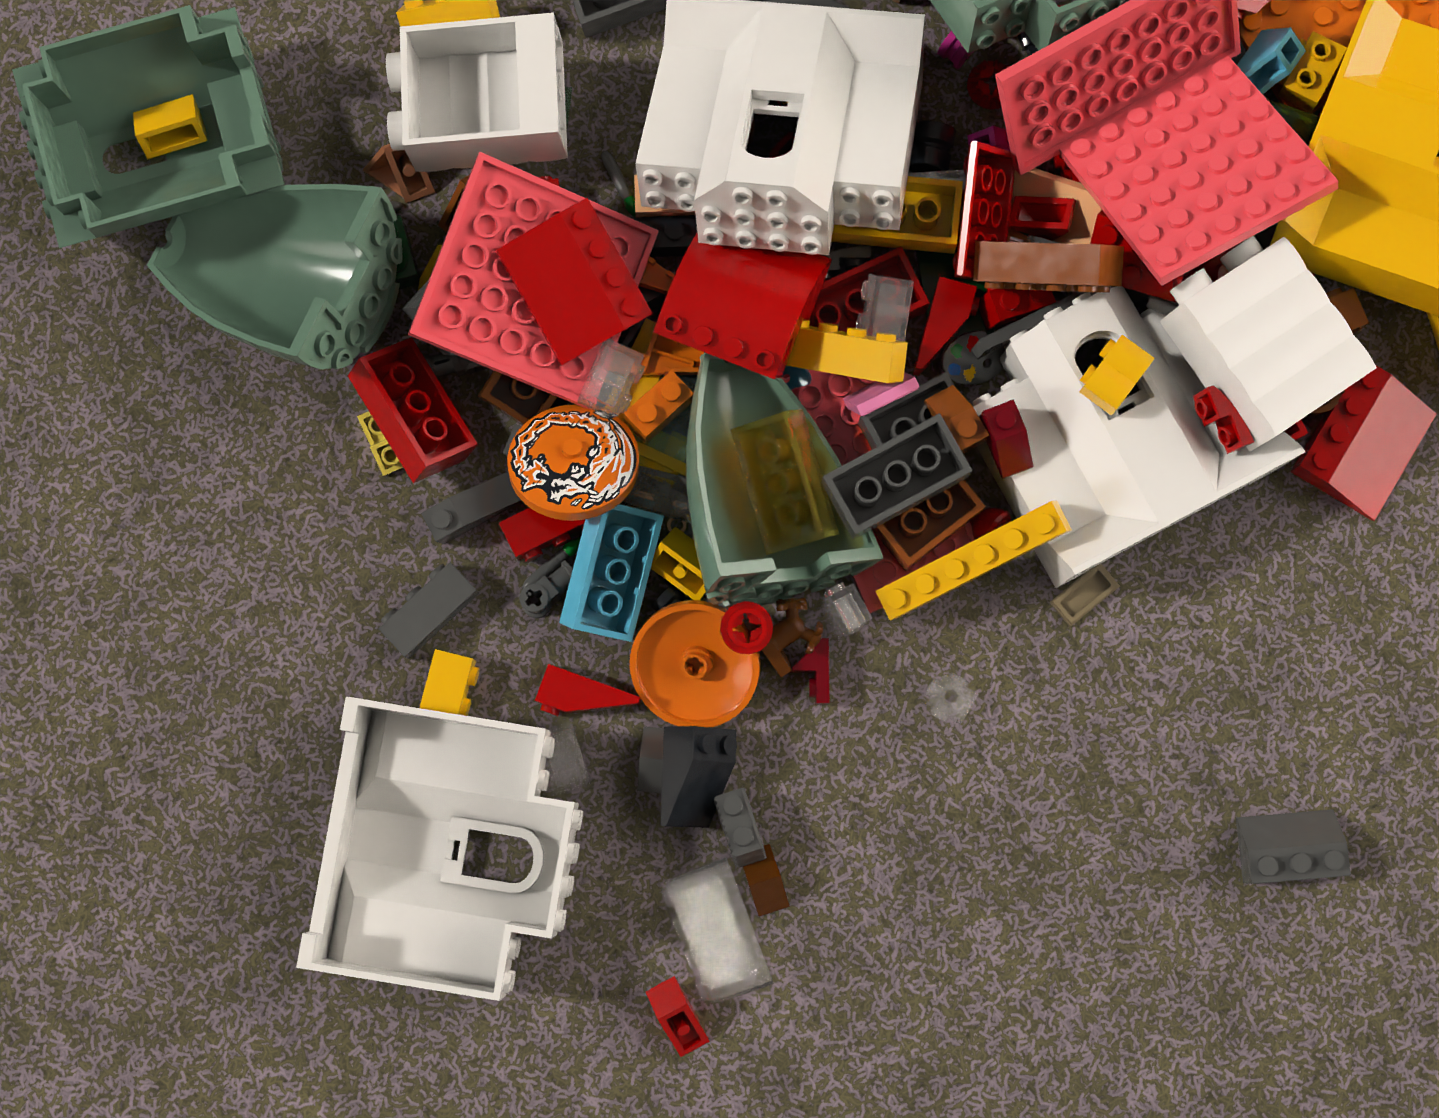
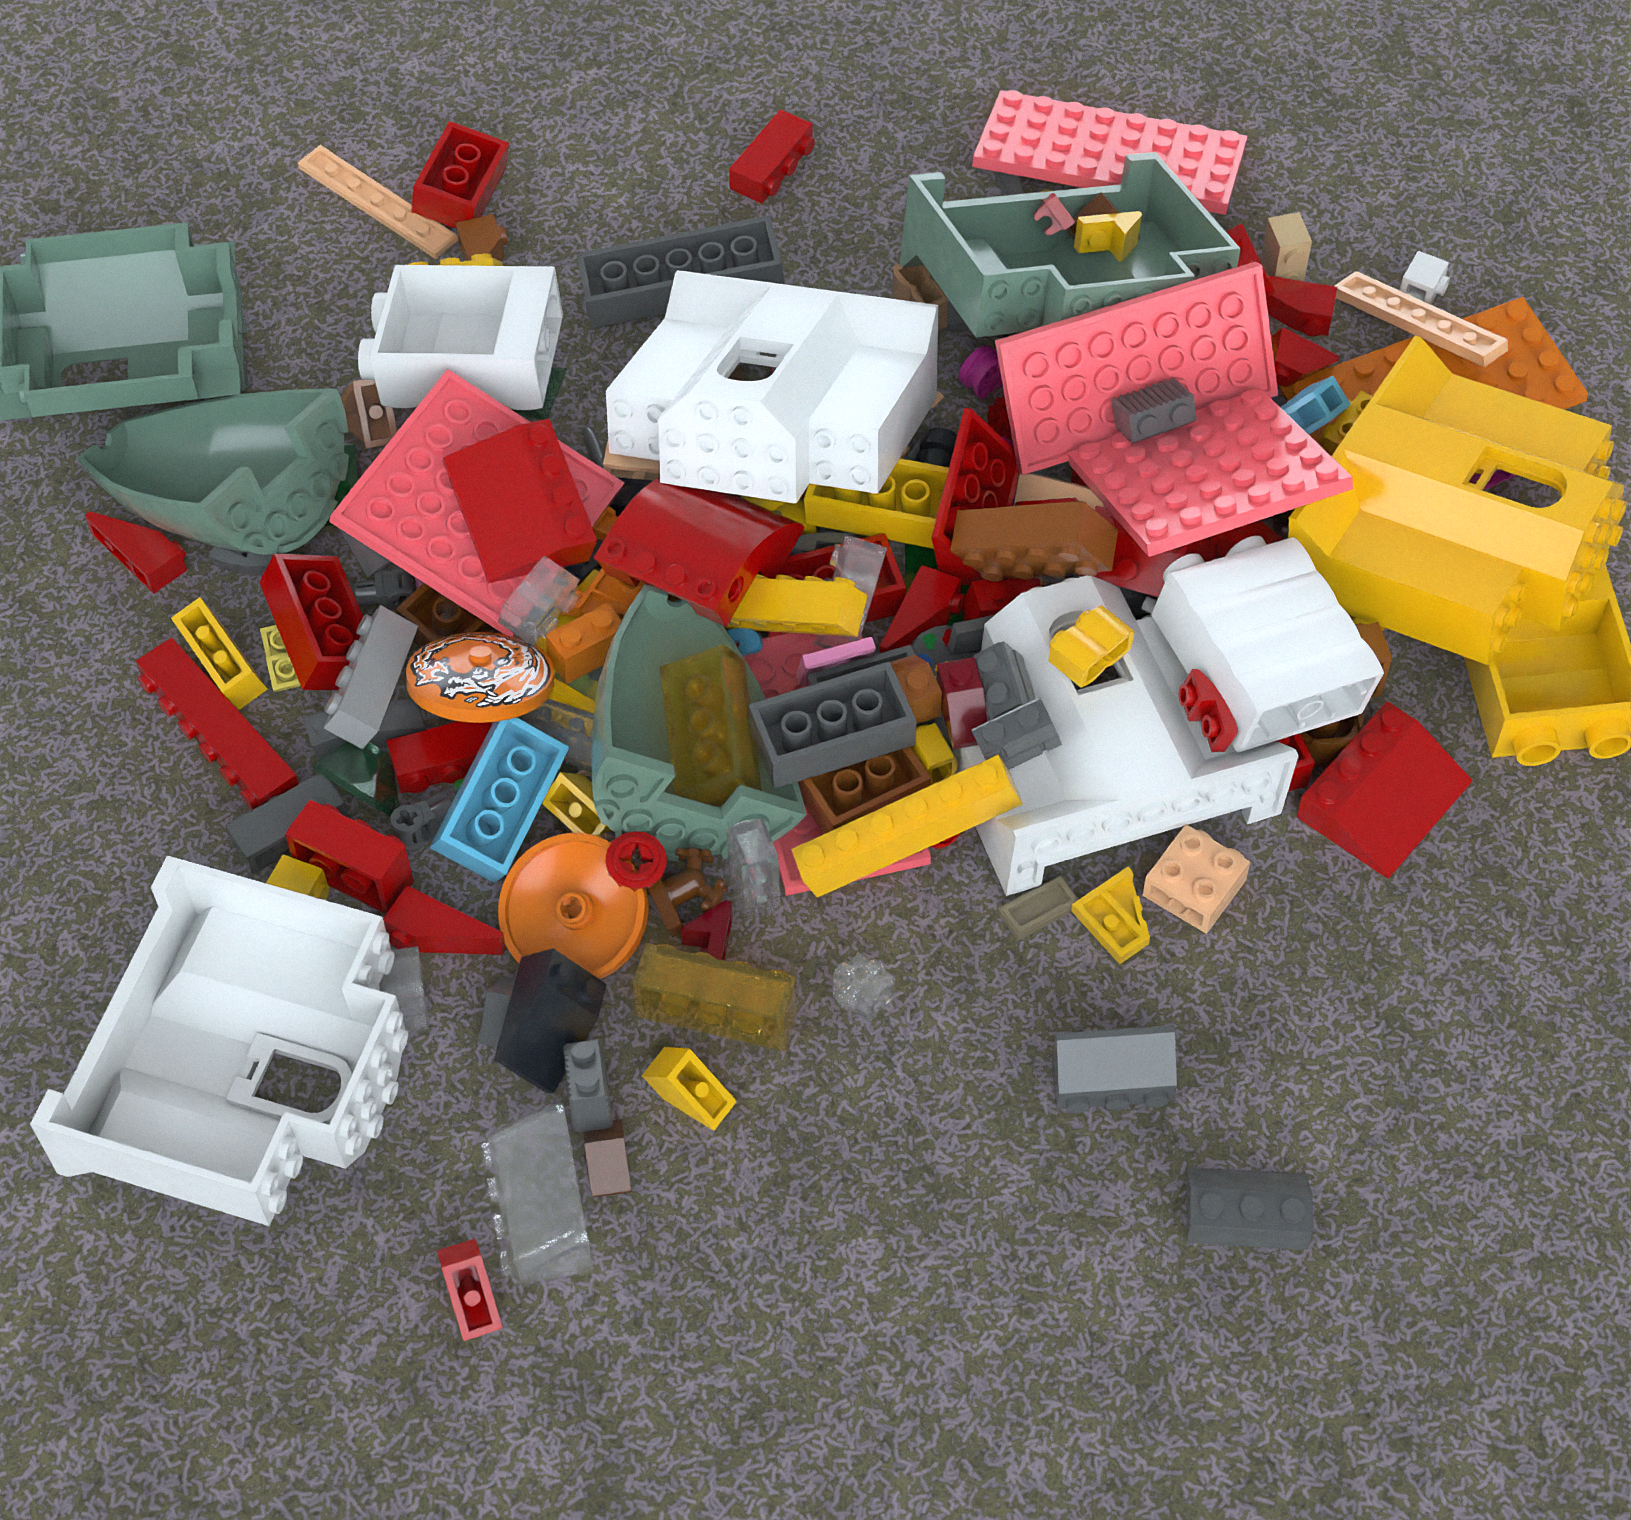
camera: 10 degrees right, 25 degrees down
(169, 126) = (138, 349): yellow brick -> none
(235, 356) = (140, 549): none -> red slope
(328, 451) = (219, 653): none -> yellow brick
(343, 522) = (215, 724): none -> red brick
(474, 471) = (370, 676): none -> light grey brick
(486, 563) = (362, 774): none -> clear green slope
(493, 642) = (351, 855): none -> red brick
(821, 810) = (689, 1086): none -> yellow slope
(833, 731) = (715, 996): none -> clear yellow brick
(984, 477) = (934, 753): none -> yellow brick
(1044, 419) = (1003, 679): none -> dark grey brick
(1060, 471) = (1018, 734): none -> dark grey brick
(1138, 103) = (1154, 410): none -> dark grey brick
(1150, 595) = (1115, 916): none -> yellow wing
(1171, 750) = (1114, 1068): none -> slope
(1217, 552) = (1196, 878): none -> light nougat brick

